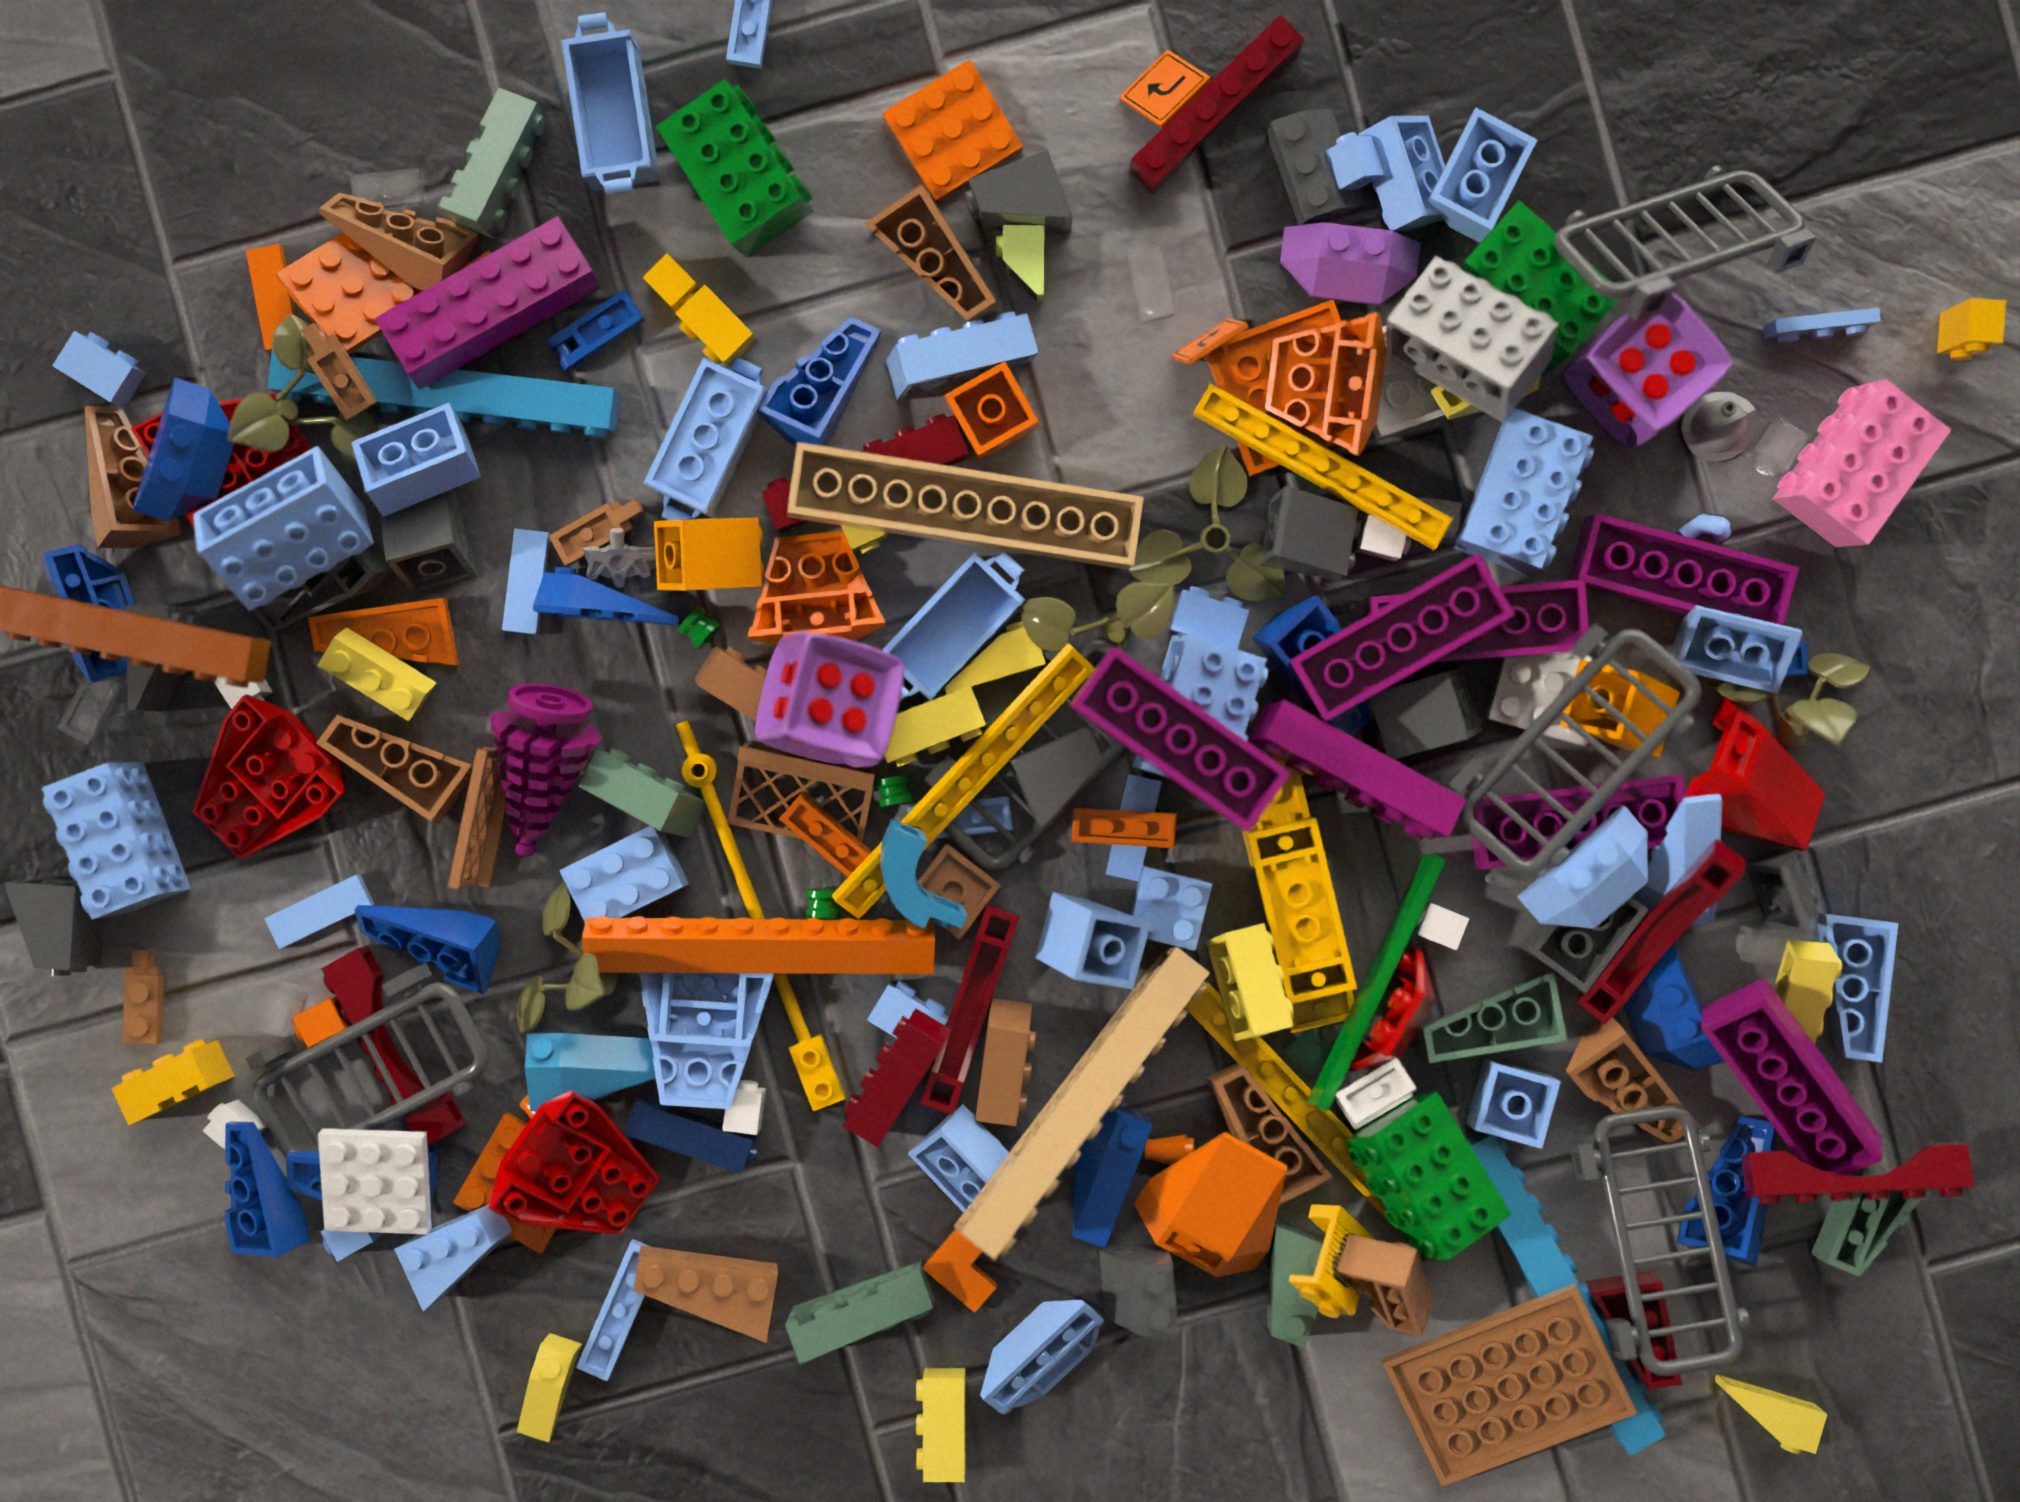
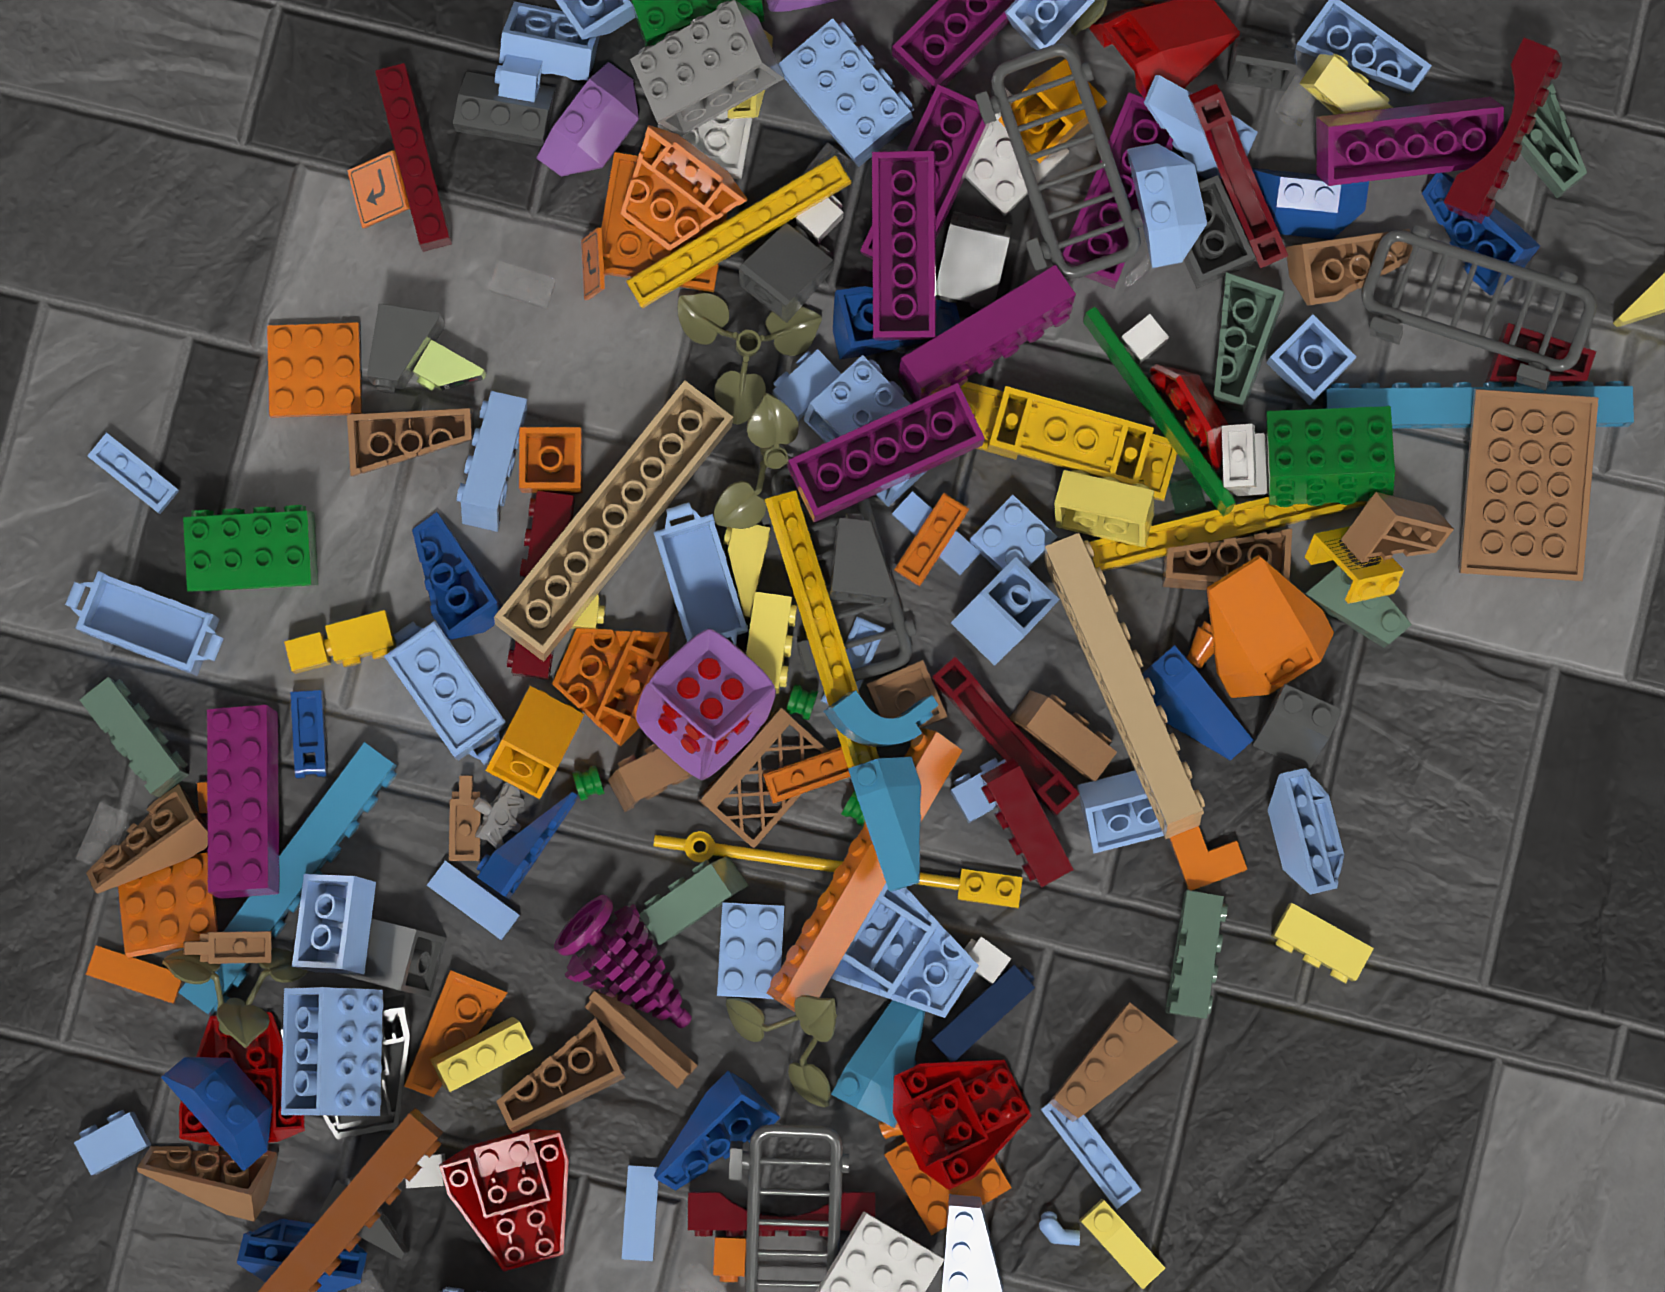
camera: 60 degrees left, 5 degrees down
(522, 1320) = (1055, 1233): none -> light blue arm
(829, 941) = (891, 808): none -> dark azure wedge

